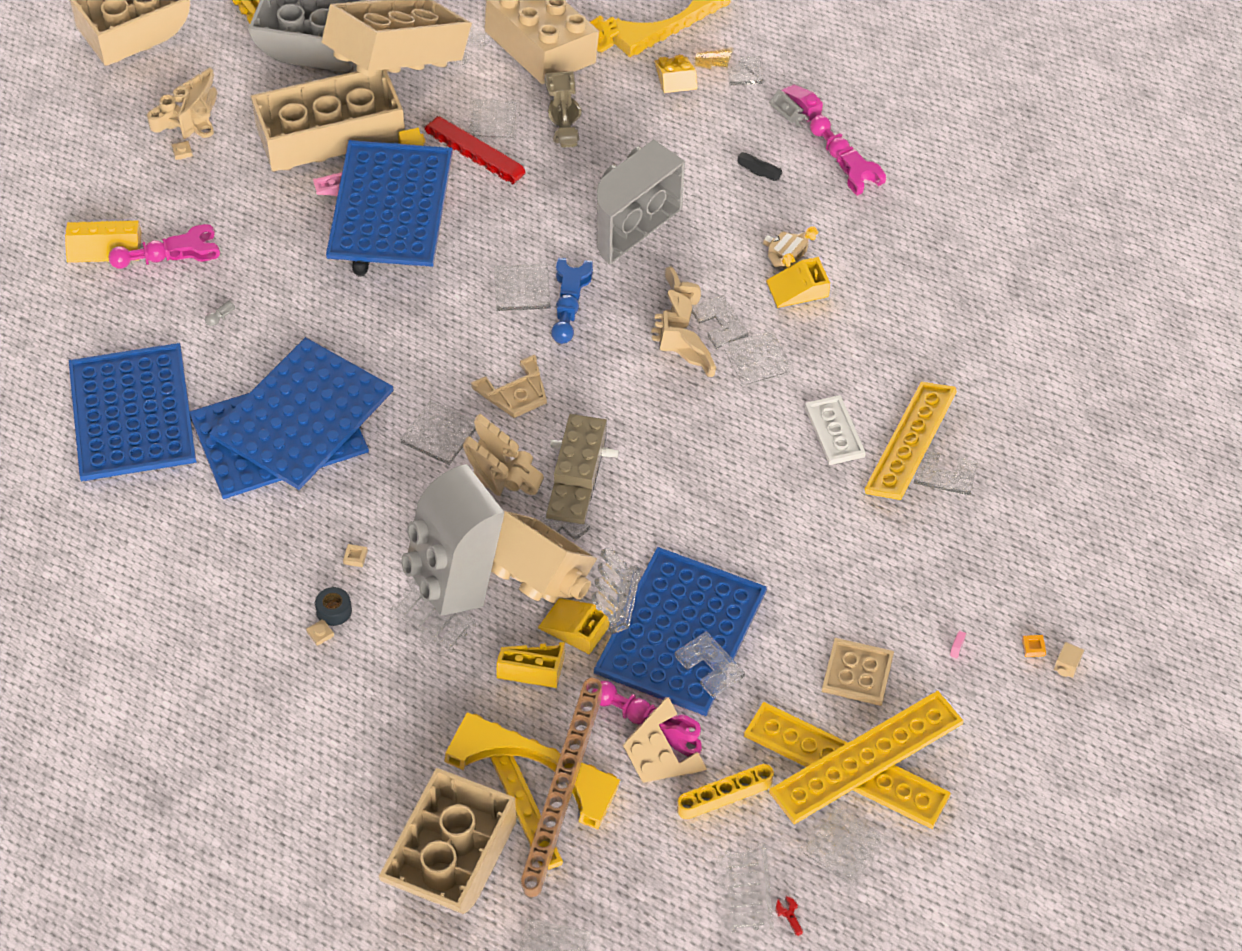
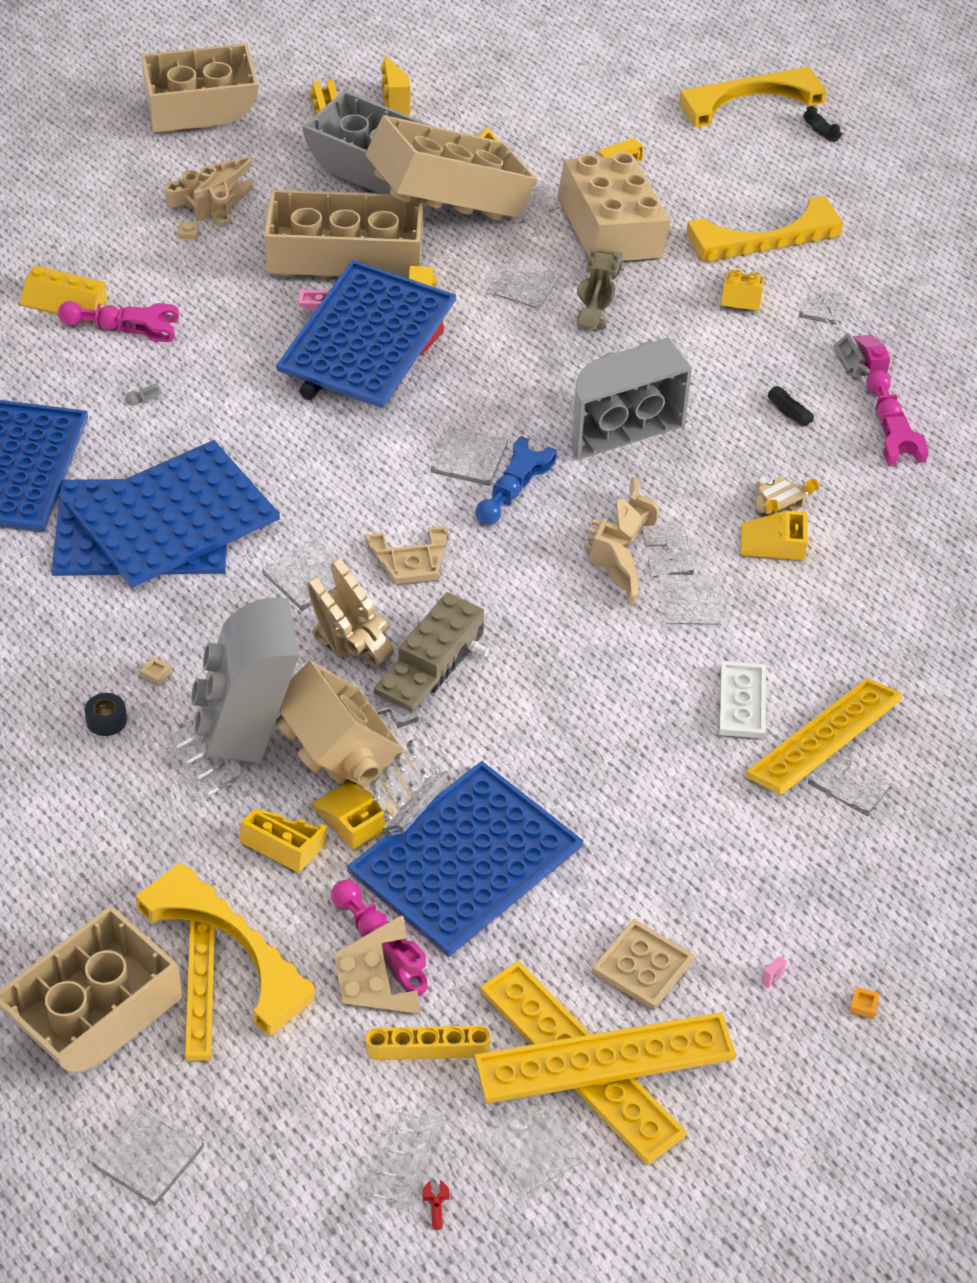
camera: 20 degrees right, 5 degrees down
(320, 632) = (80, 737): tan plate -> none
(475, 149) = (489, 308): red beam -> none
(559, 794) = (239, 982): medium nougat beam -> none
(607, 30) = (681, 227): yellow hinge -> none
(716, 58) = (796, 286): clear yellow slope -> none
(725, 669) = (491, 911): clear plate -> none
(1068, 660) = (898, 1031): tan brick -> none

